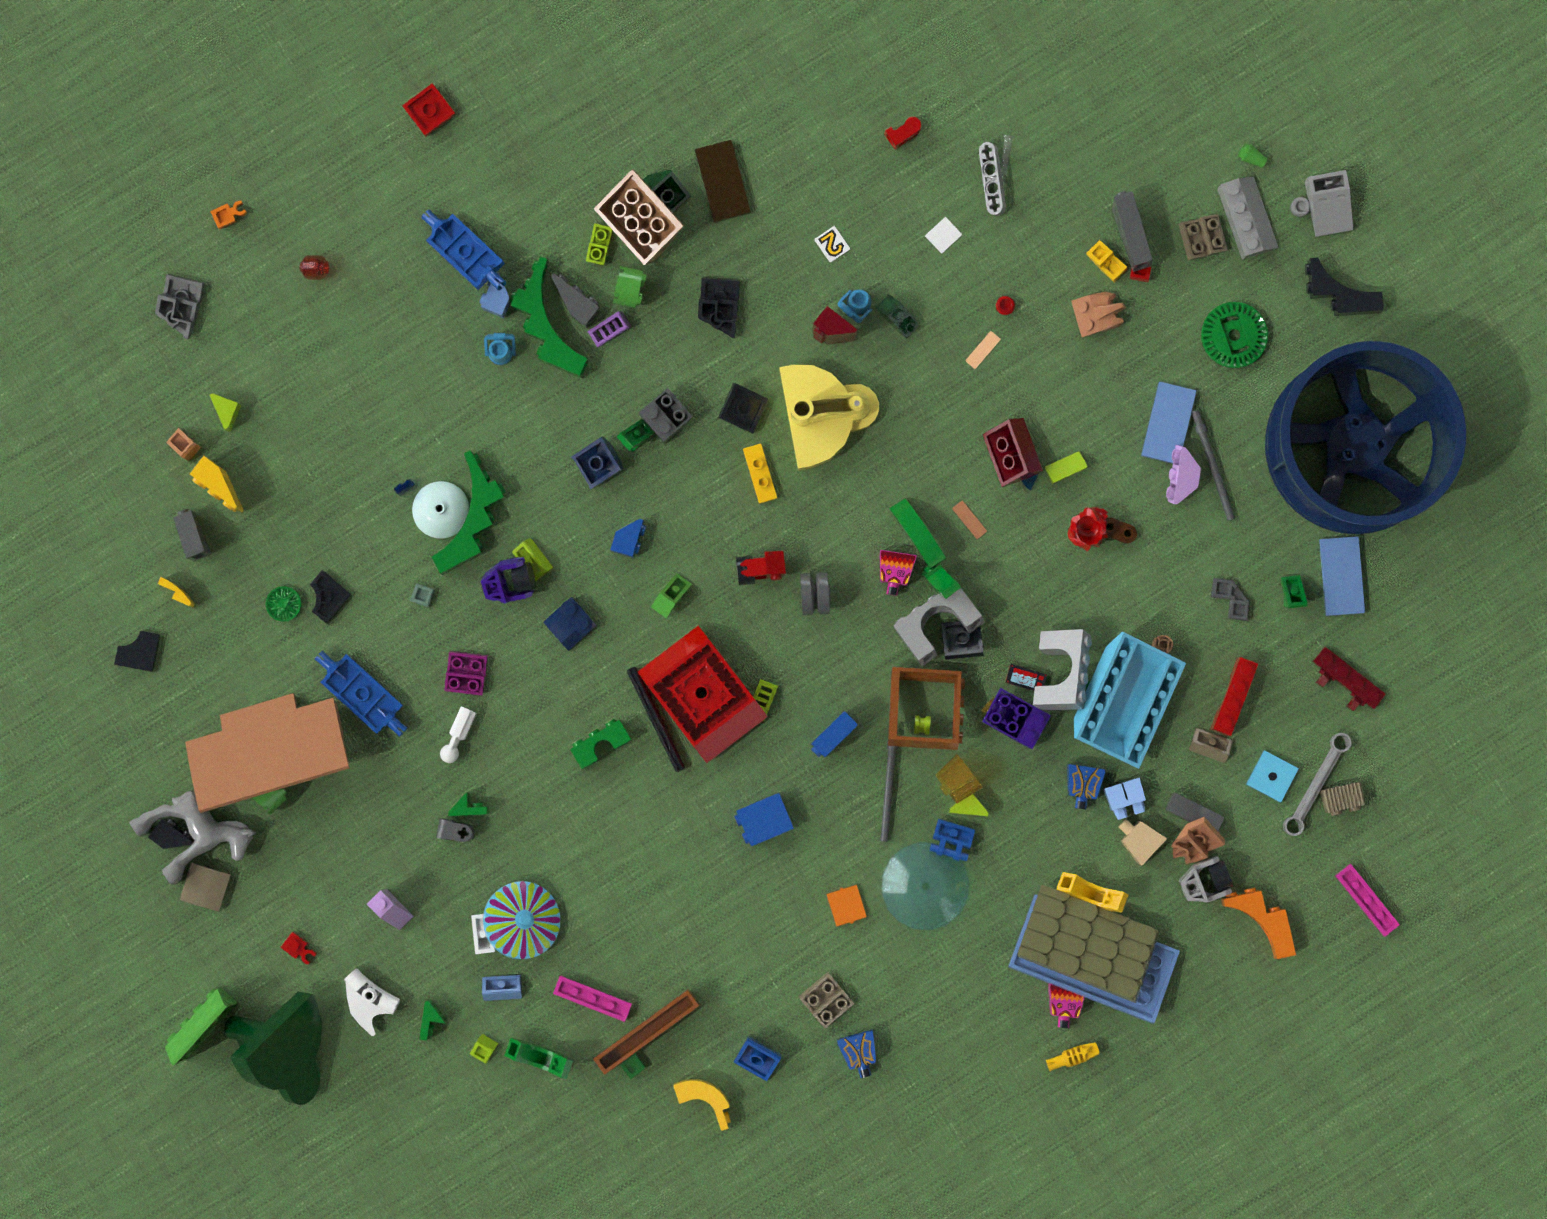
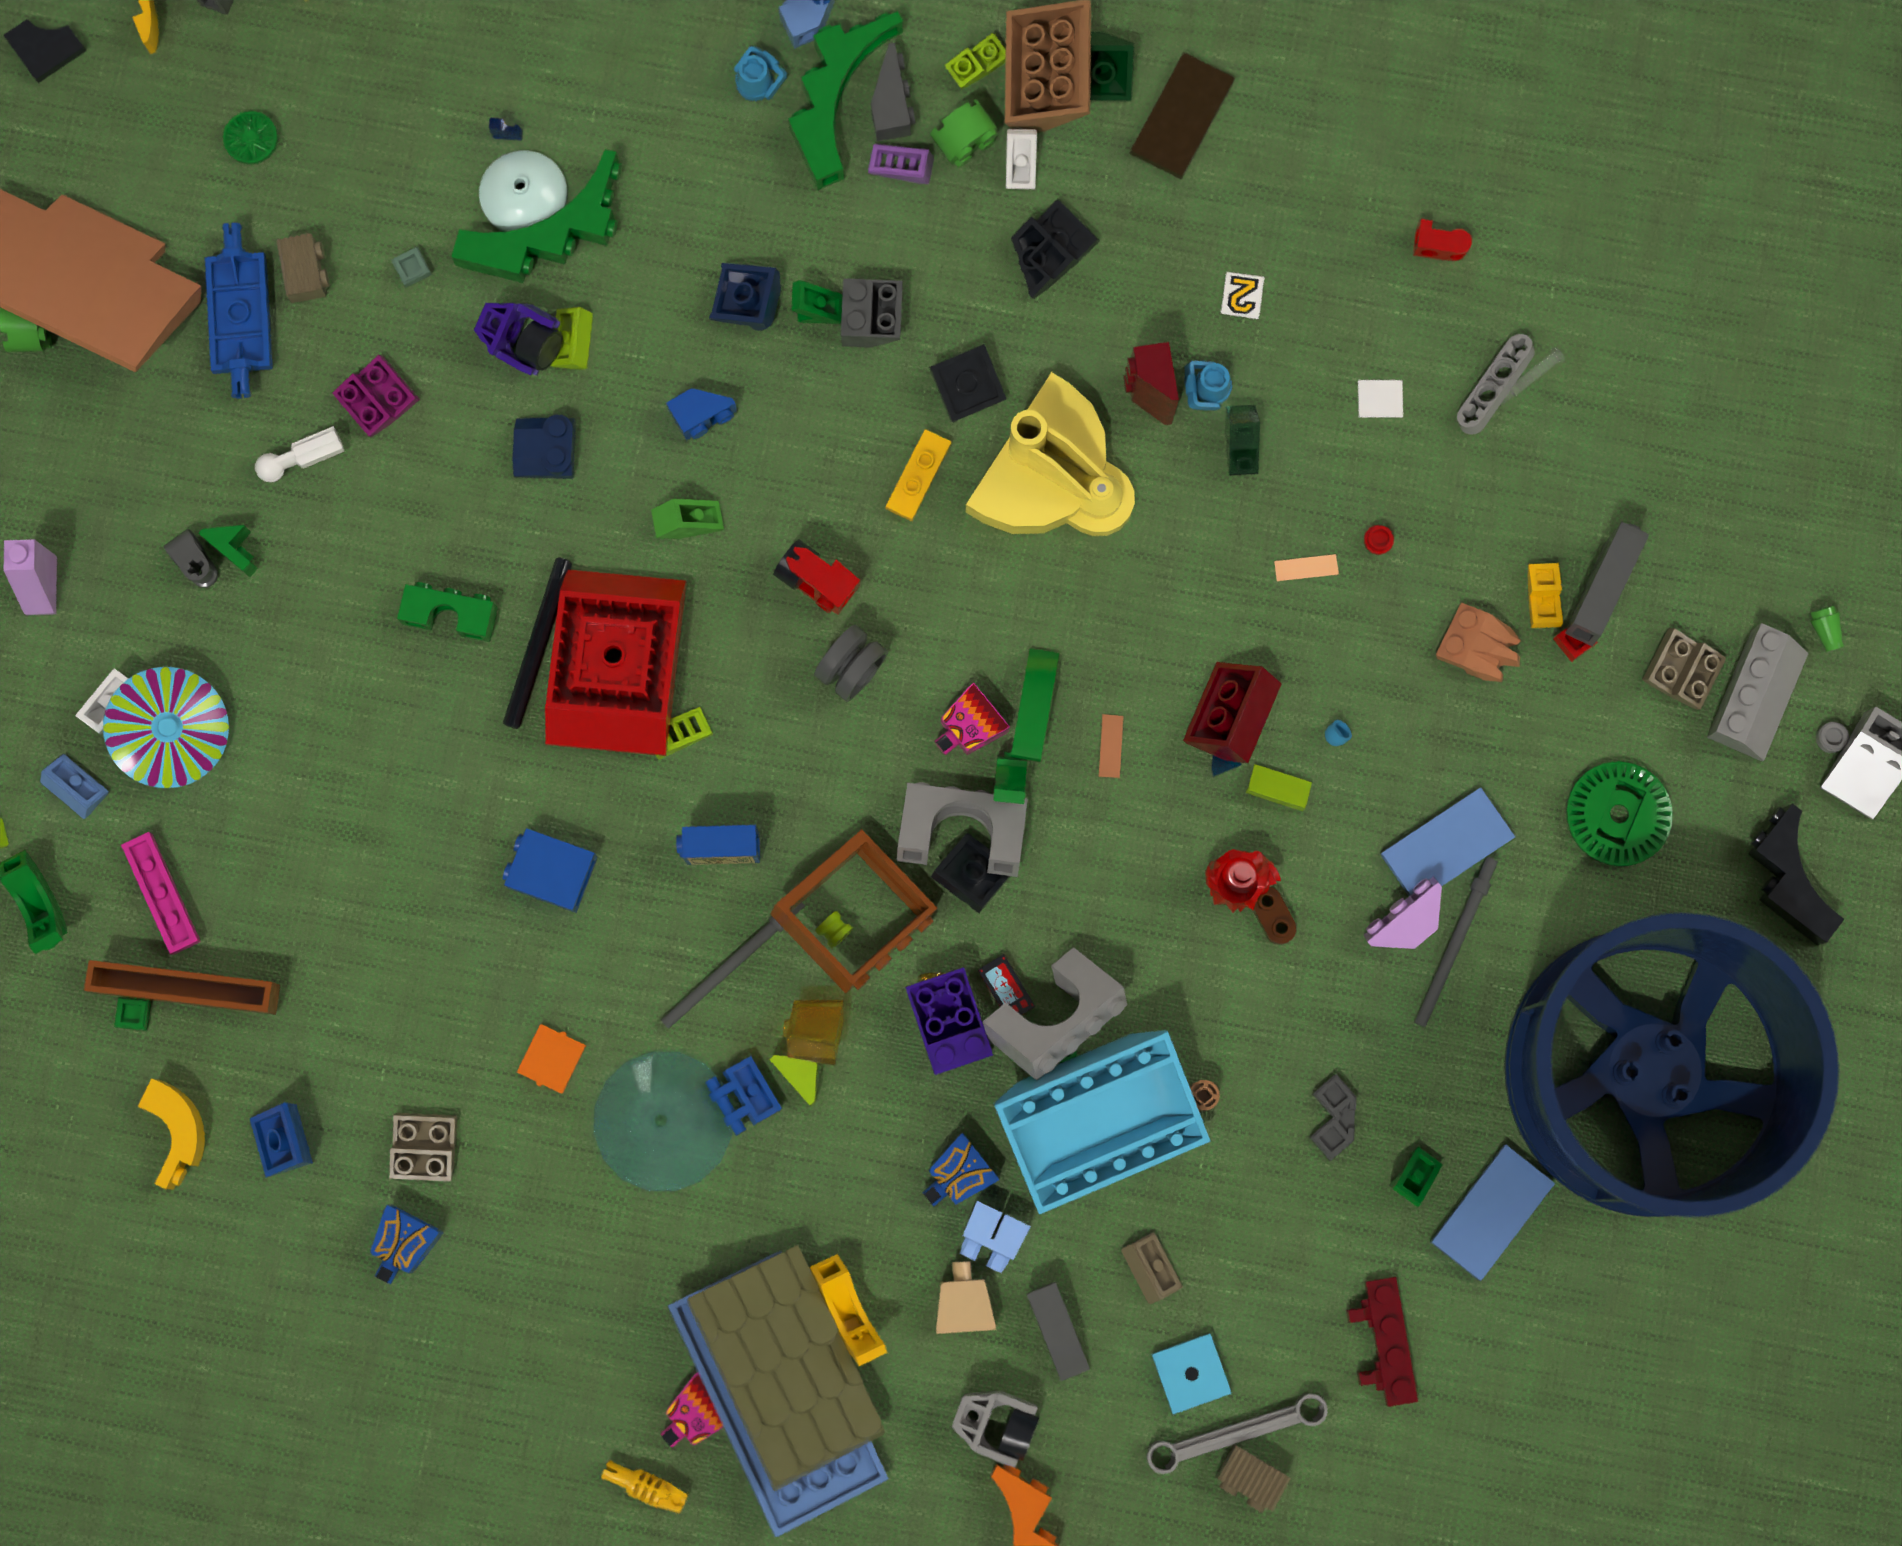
camera: 35 degrees right, 5 degrees down
(329, 596) = (308, 176): black tile -> none
(372, 644) = (302, 268): none -> dark tan brick
(666, 274) = (1021, 158): none -> white slope
(1070, 416) = (1337, 733): none -> dark azure hinge
(1196, 841) = (1029, 1366): nougat plate -> none
(1235, 696) = (1232, 1235): red arch -> none

